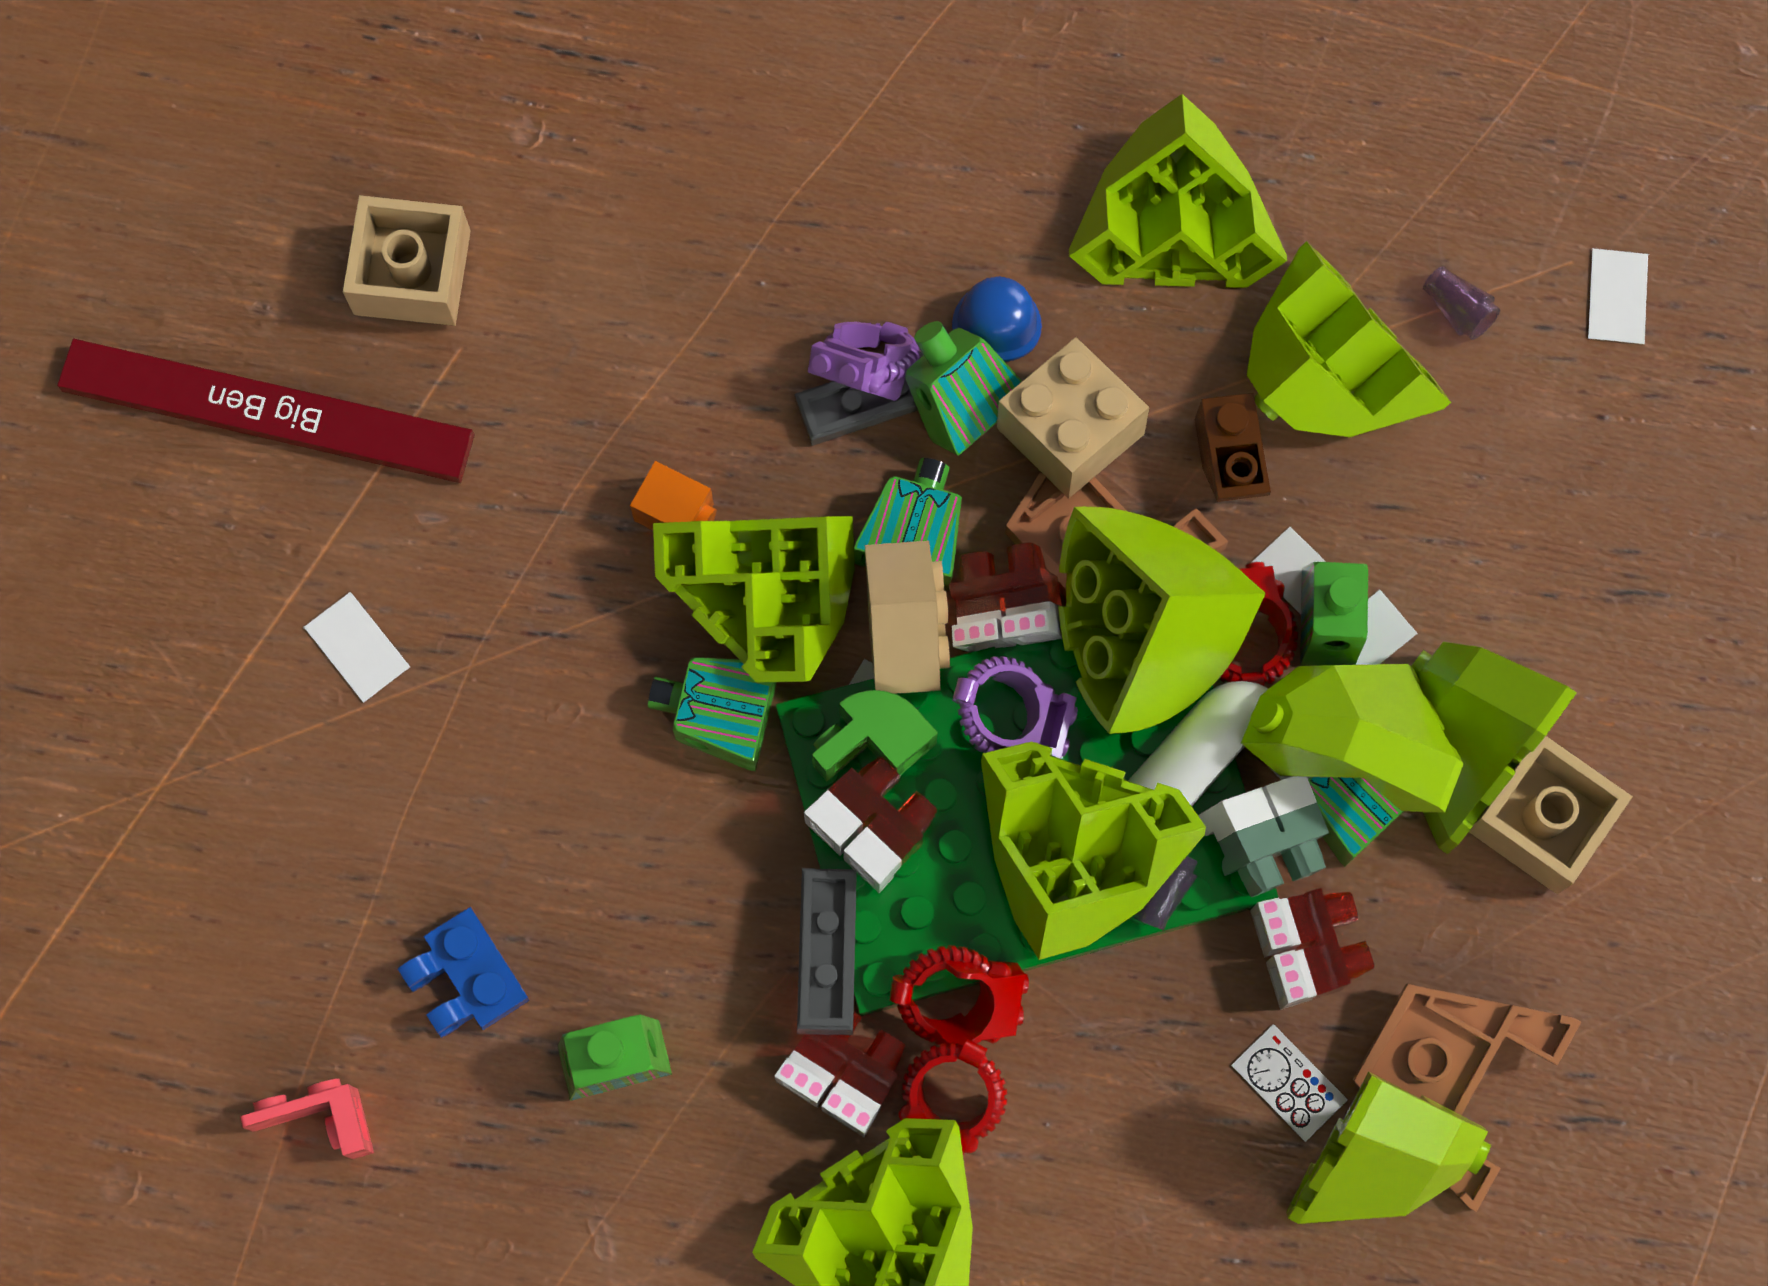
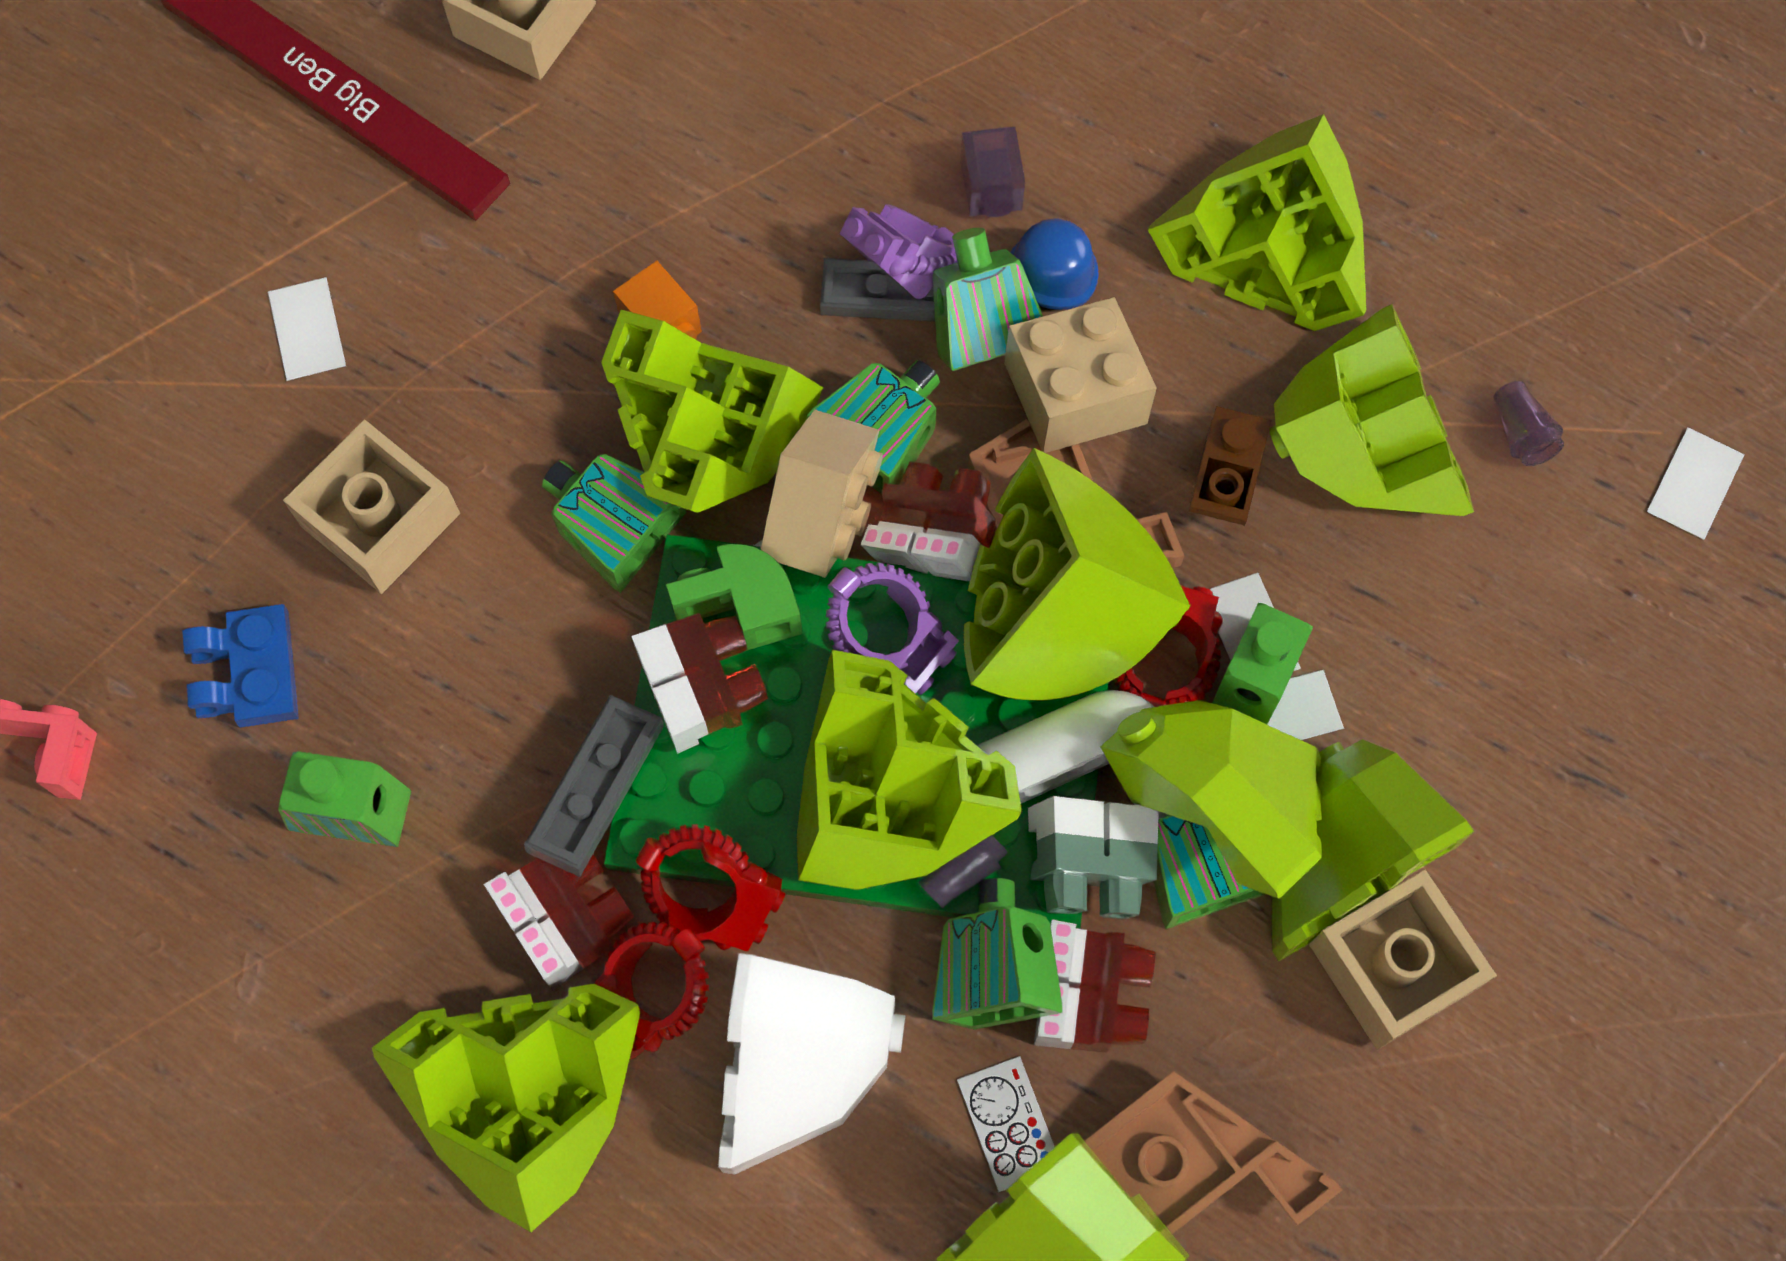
camera: 25 degrees right, 5 degrees down
(511, 788) = (372, 506): none -> tan brick
(908, 254) = (992, 171): none -> clear purple brick
(1106, 1106) = (801, 1056): none -> white brick
(1228, 957) = (996, 963): none -> bright green torso

